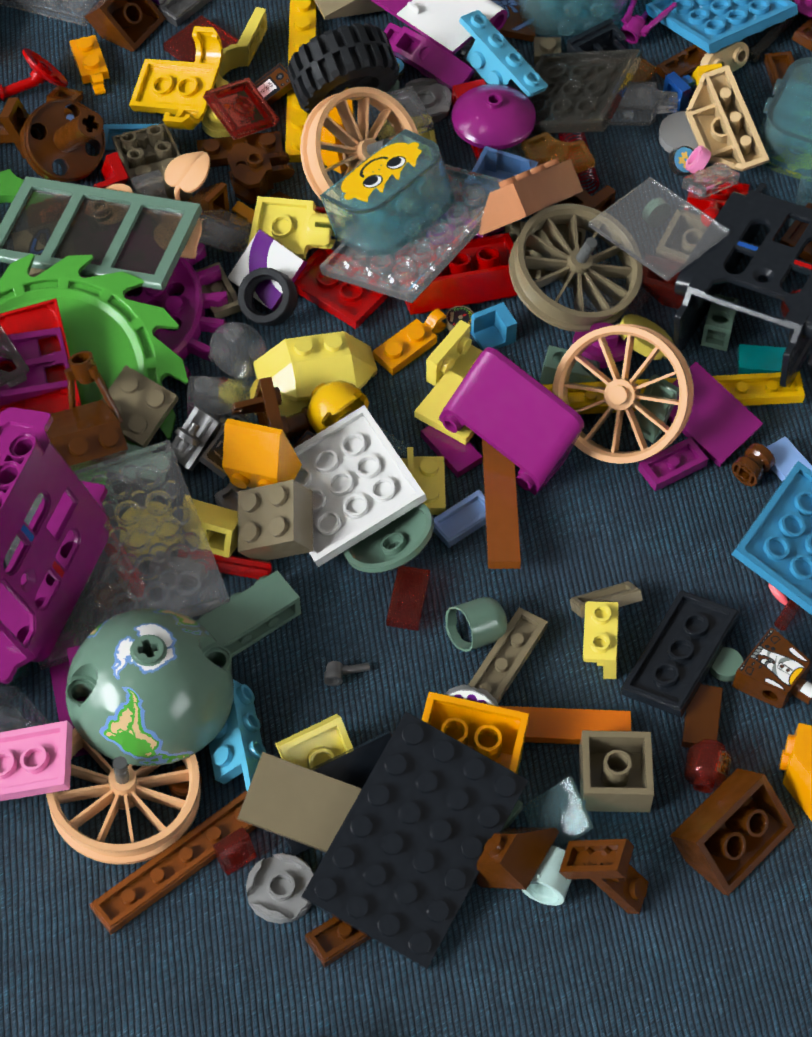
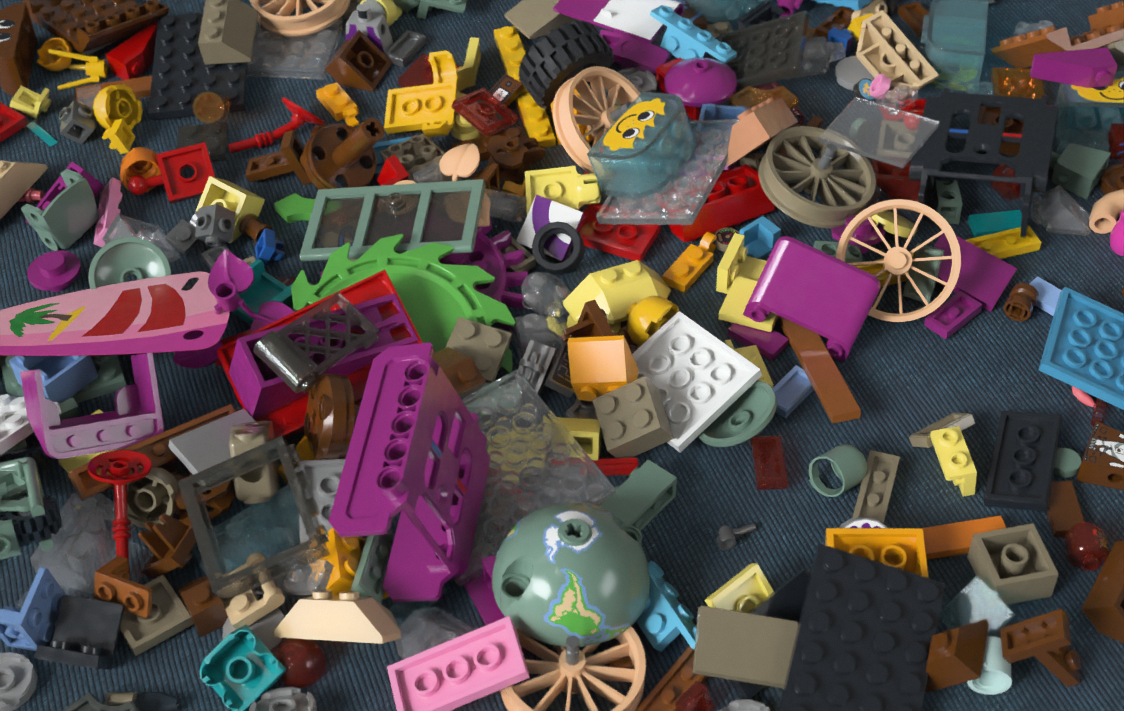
camera: 10 degrees left, 10 degrees down
(84, 369) = (431, 322): reddish brown plant -> none

